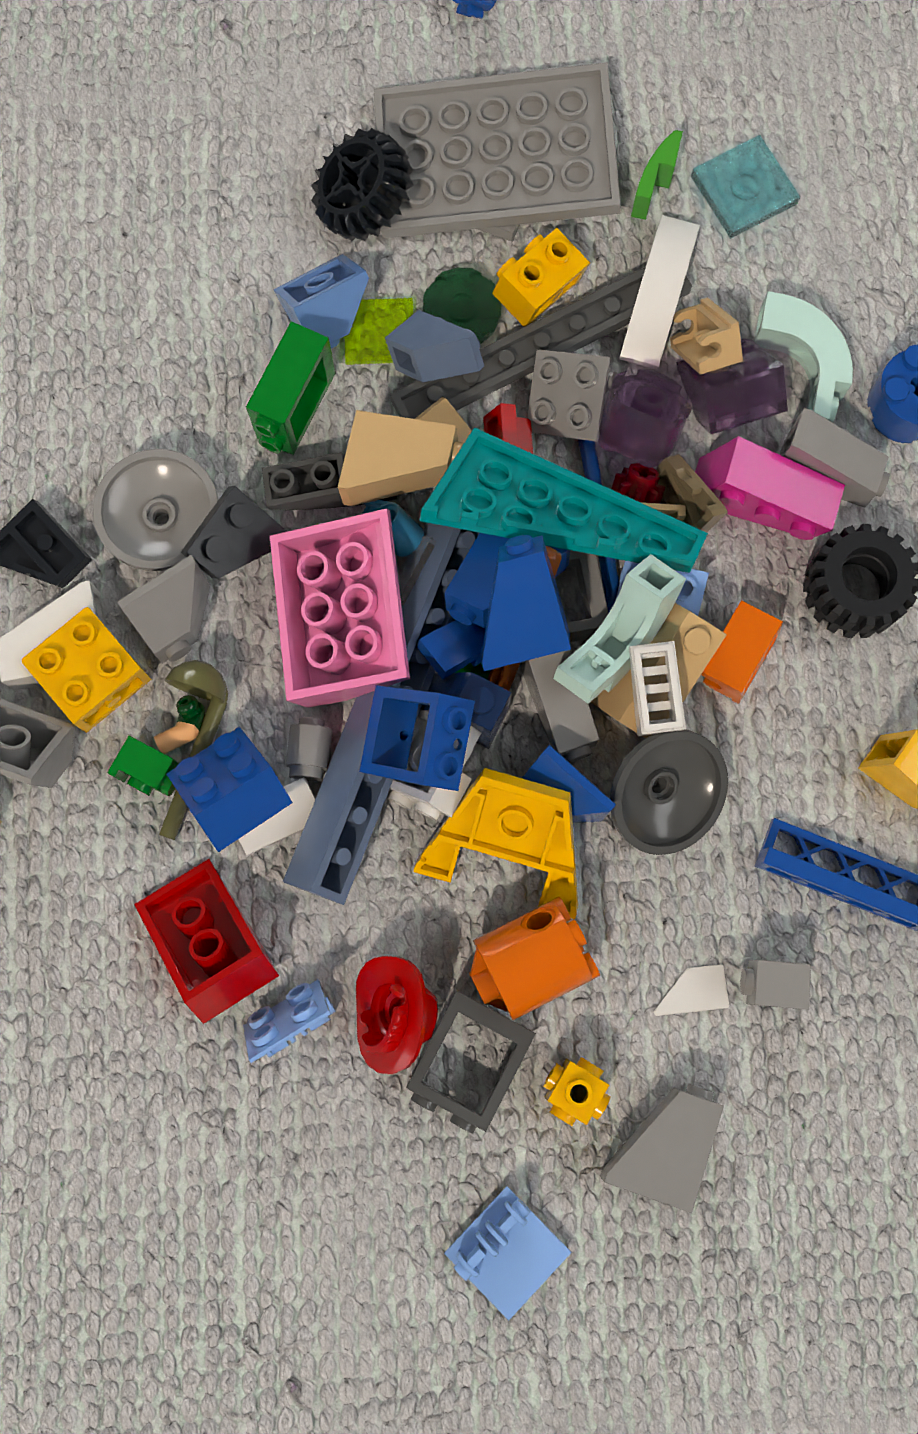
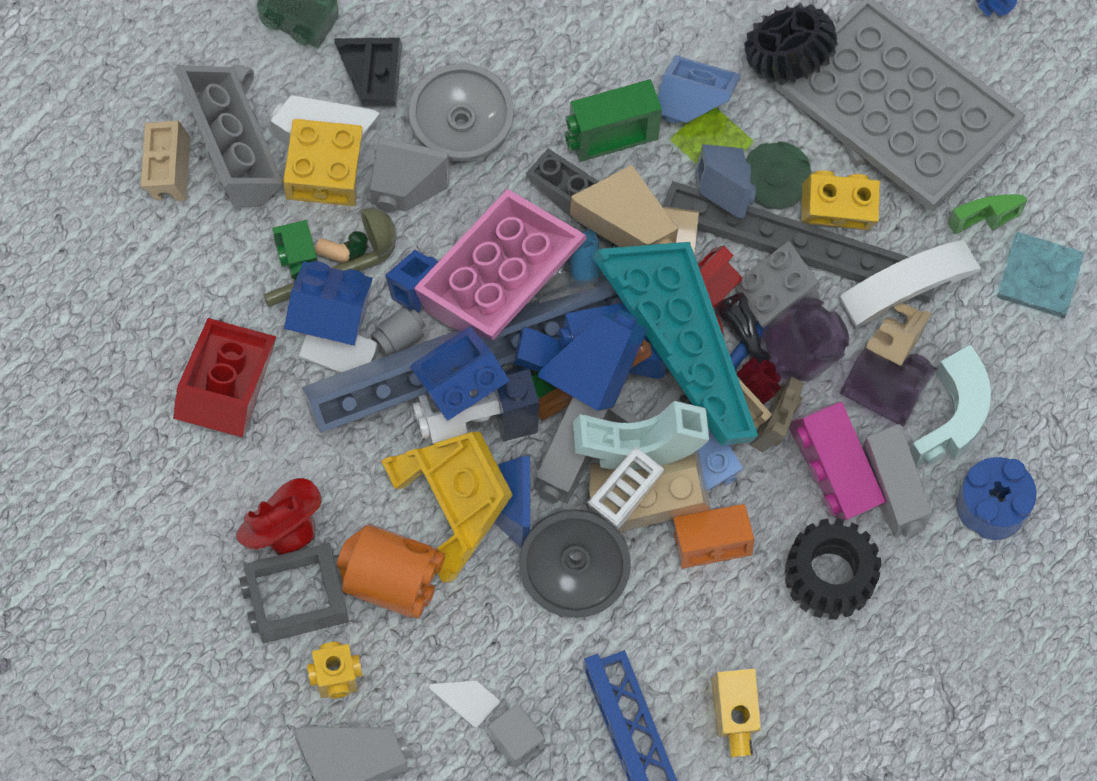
camera: 45 degrees right, 10 degrees down
(231, 535) = (487, 167): black wing -> none
(267, 693) = (406, 276): none -> blue brick
(271, 1028) = (205, 454): light blue hinge -> none
(507, 1253) = (197, 719): light blue hinge -> none
(573, 451) = (741, 319): none -> black piece

